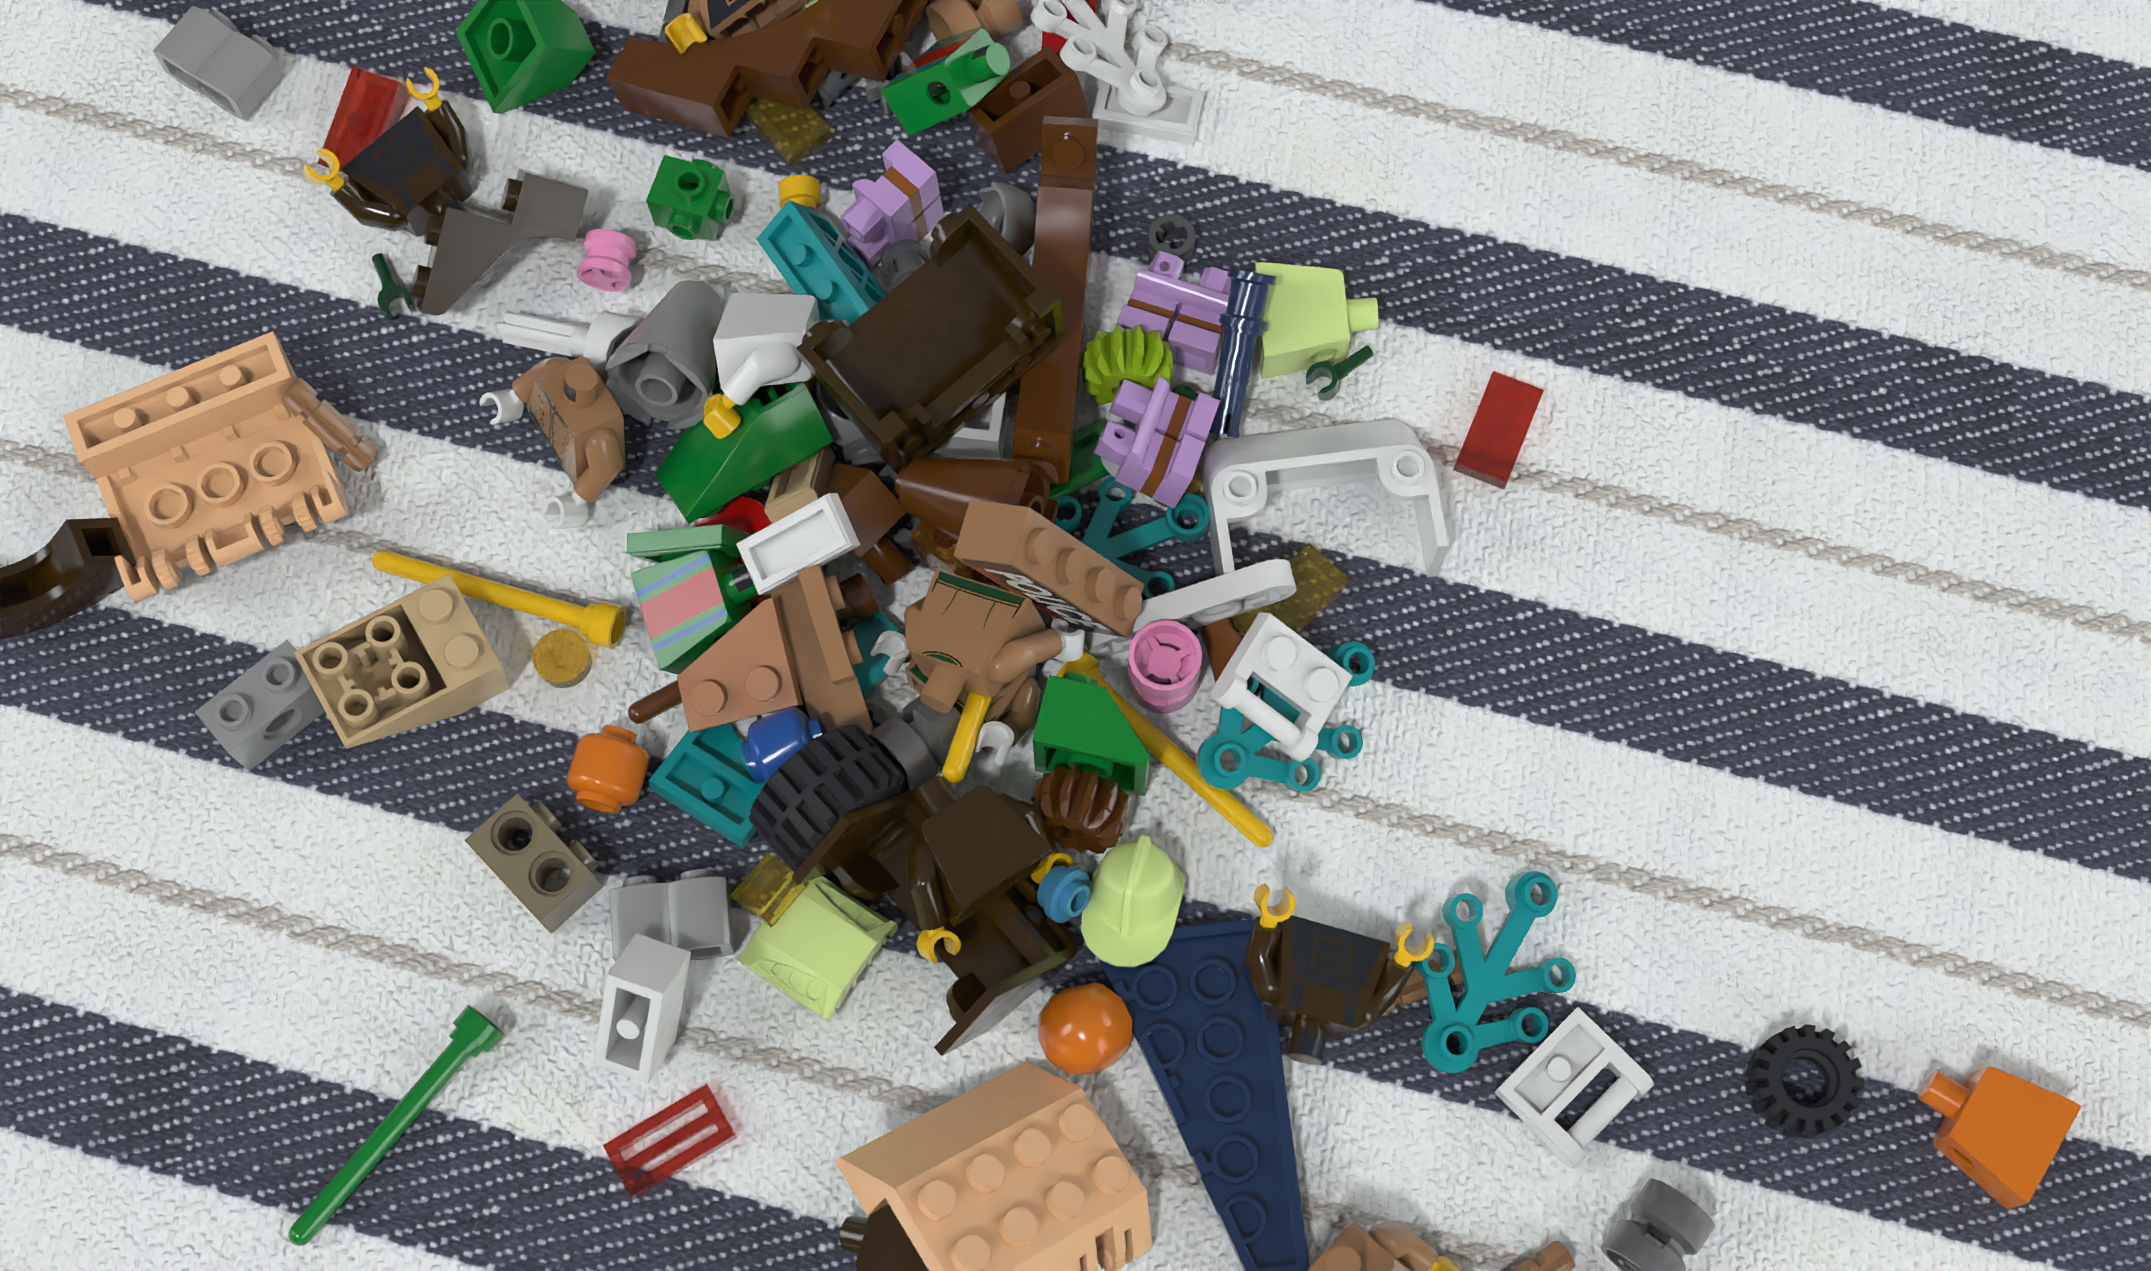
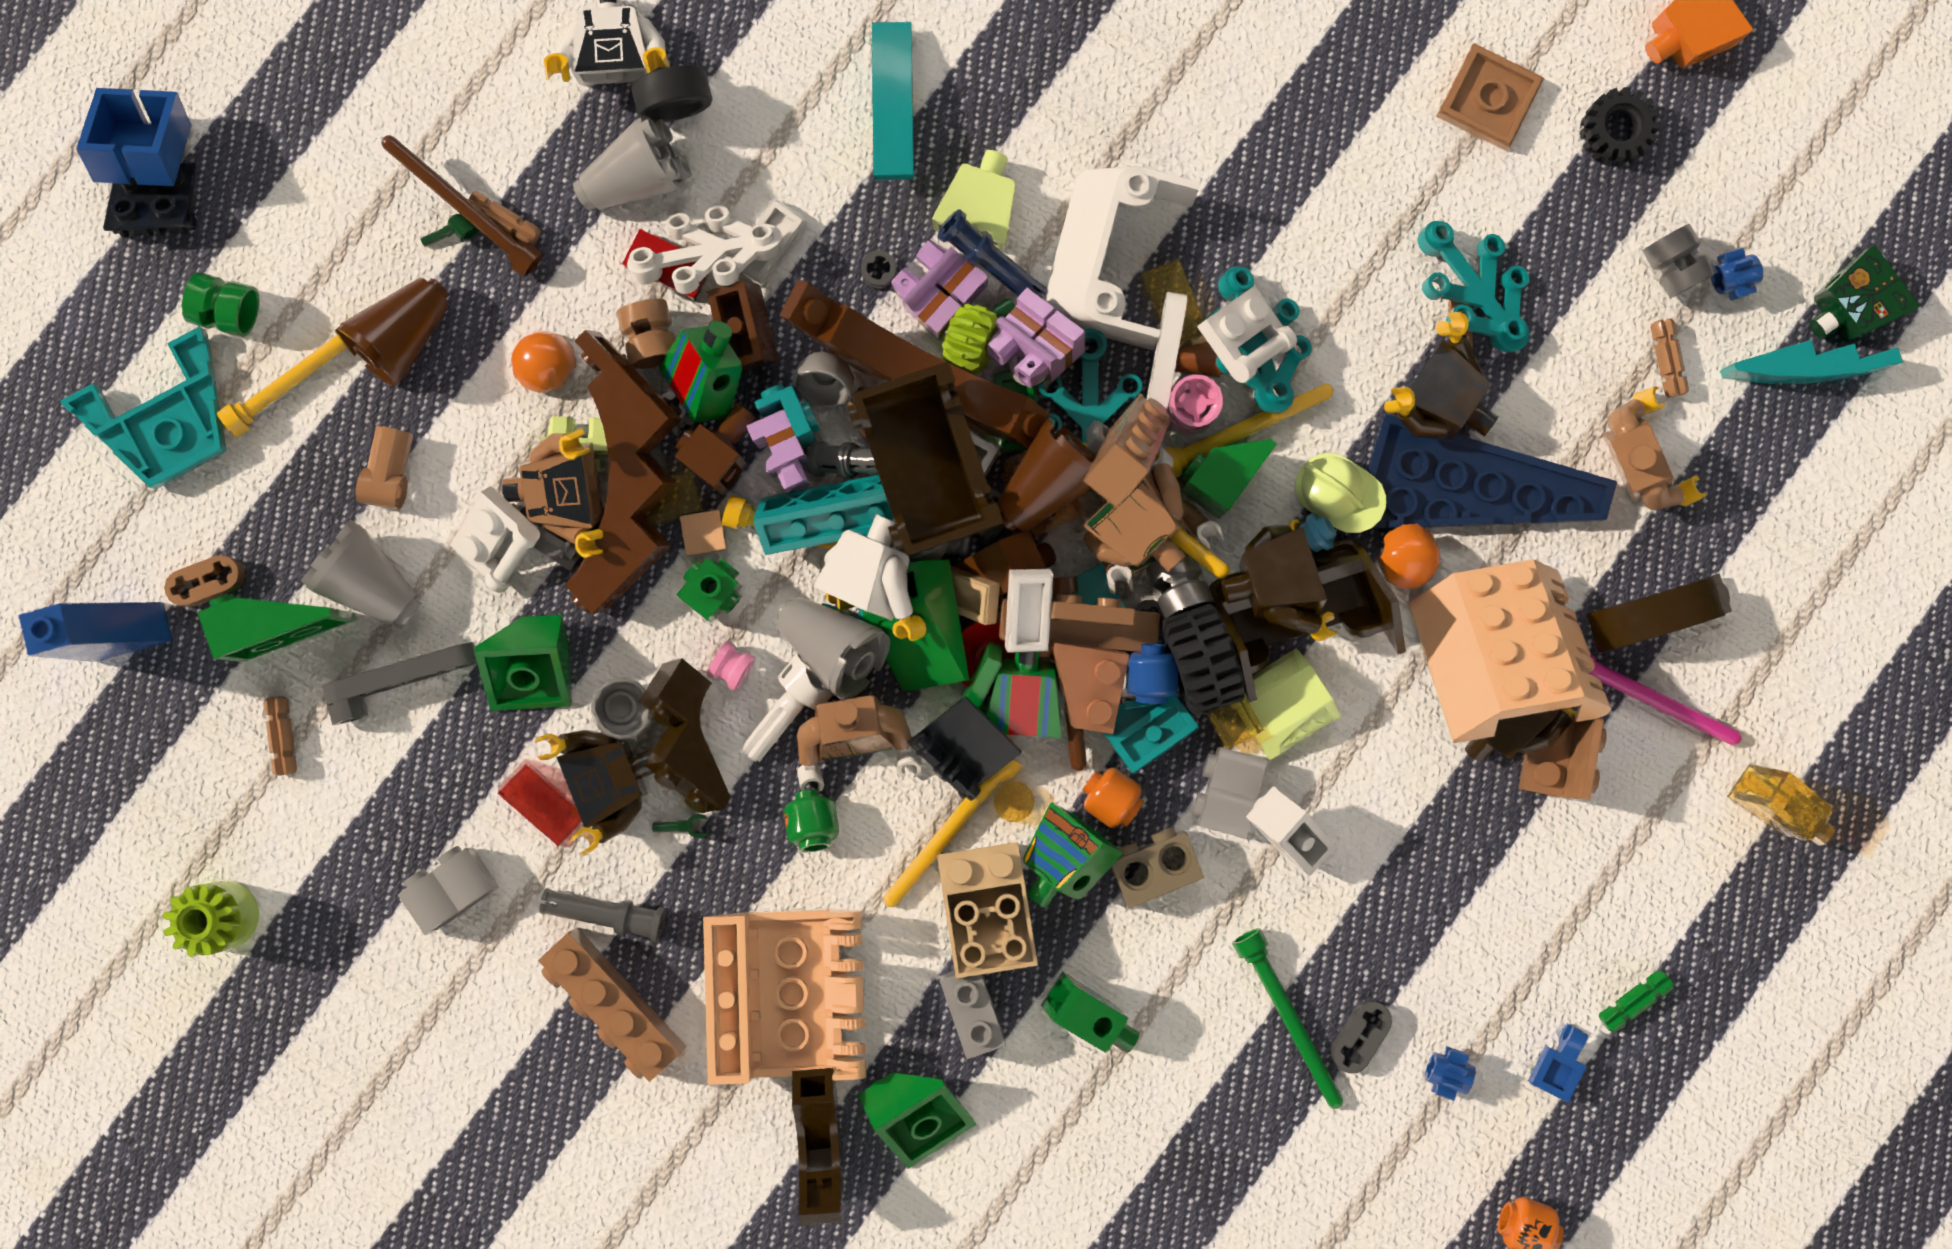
camera: 70 degrees left, 15 degrees up
(102, 687) = (914, 1115): none -> green slope
(137, 287) = (612, 1004): none -> medium nougat brick
(250, 260) = (621, 917): none -> dark grey pin
(305, 849) = (1079, 1007): none -> green torso
(329, 425) = (782, 902): medium nougat axle -> none
(398, 1247) = (1369, 1041): none -> dark grey beam
(445, 423) = (811, 821): none -> green head
(499, 150) = (617, 709): none -> light grey hair
(508, 738) = (1066, 856): none -> green torso
(599, 556) = (964, 747): none -> black hinge
(715, 1116) = (1354, 848): clear red tile -> none
(758, 172) = (703, 533): none -> light nougat tile
(851, 135) = (713, 453): none -> reddish brown brick
(941, 193) = (799, 414): none -> teal bracket
(1081, 809) = (1270, 499): reddish brown gear -> none
(1336, 372) = (1023, 197): dark green hand -> none
(1384, 169) = (892, 101): none -> teal slope
(1498, 430) = (1110, 112): clear red tile -> none
(1559, 1073) = (1554, 272): white plate -> none
(1758, 894) = (1490, 97): none -> medium nougat tile

